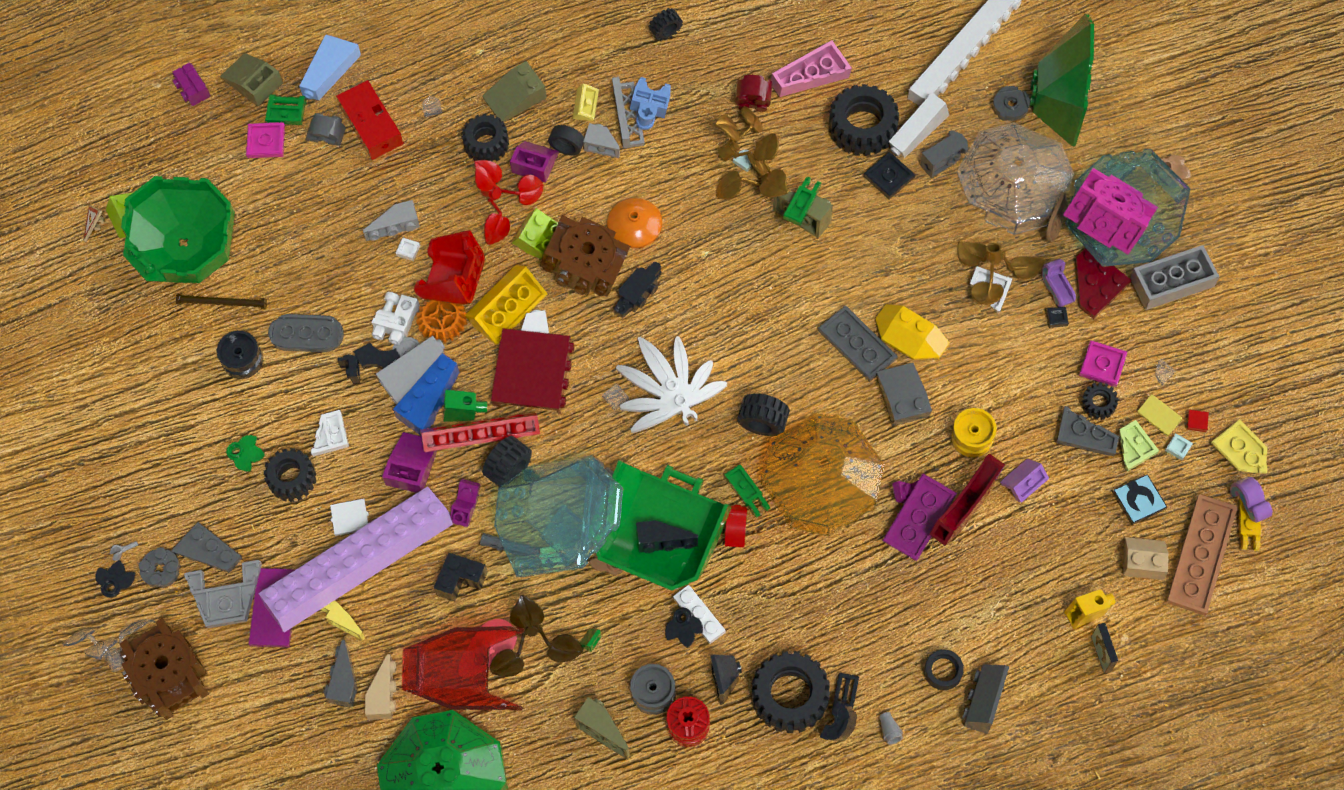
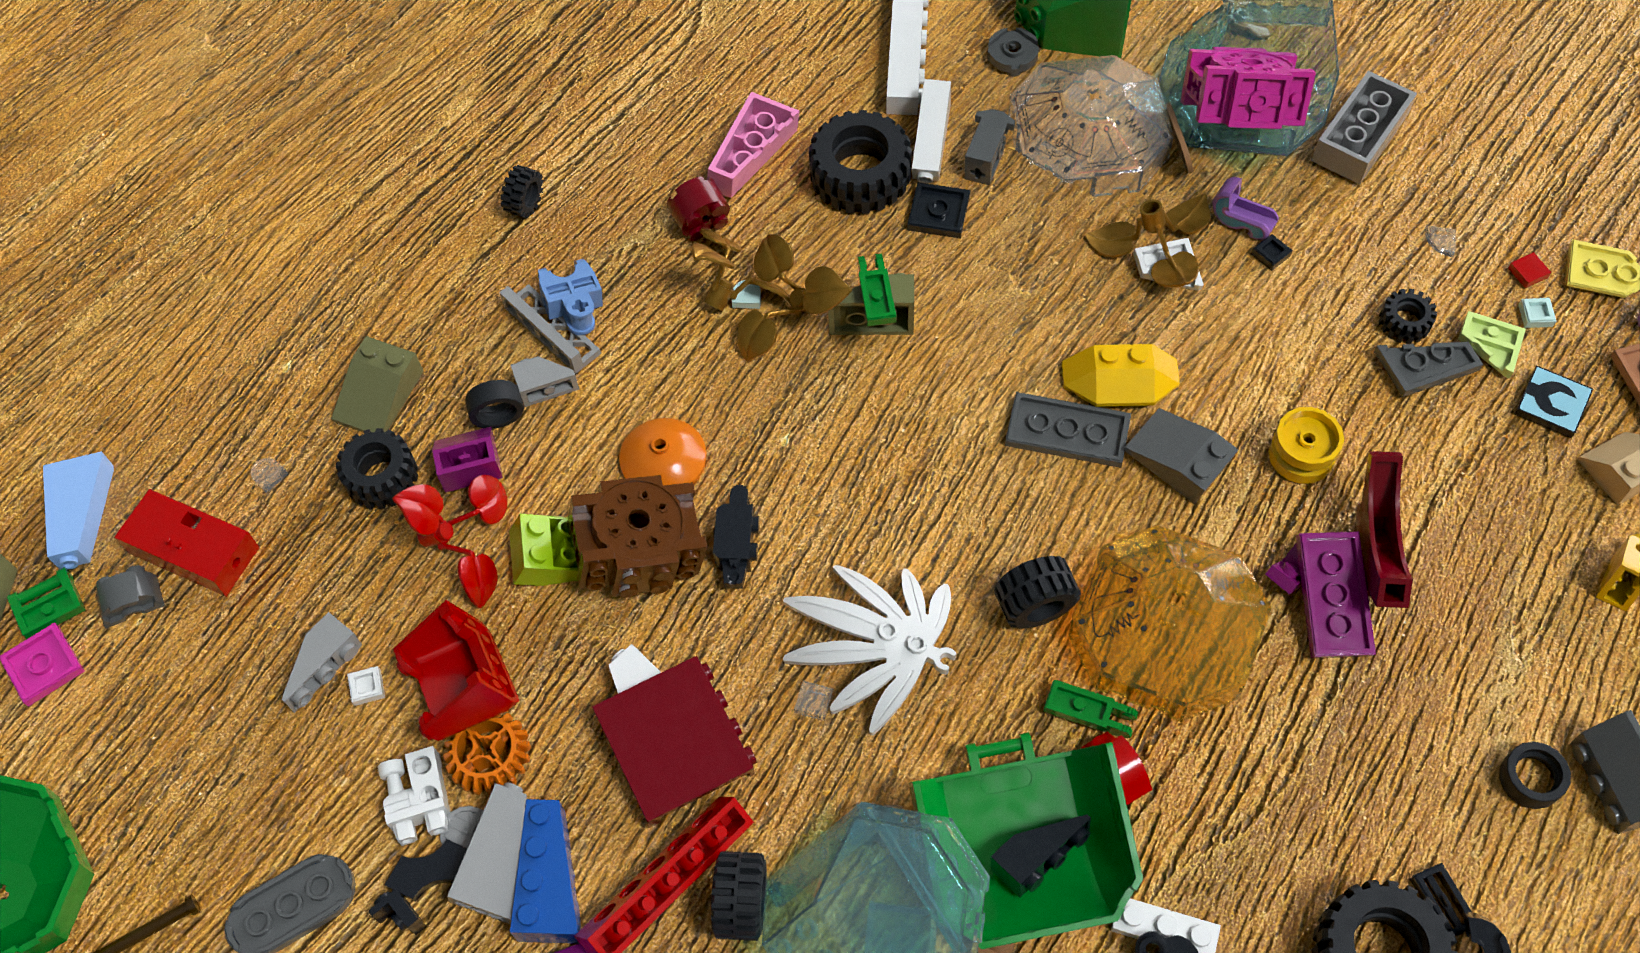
camera: 35 degrees left, 5 degrees down
(462, 406) = (608, 858): green torso -> none
(506, 303) = (566, 671): yellow slope -> none
(585, 103) = (482, 347): light yellow slope -> none
(890, 729) = (1542, 906): light grey cone -> none
(1025, 479) = (1417, 460): medium lavender panel -> none
(1097, 284) = (1281, 184): dark red plate -> none
(1103, 363) = (1371, 271): dark pink plate -> none
(1159, 415) = (1485, 289): light yellow slope -> none

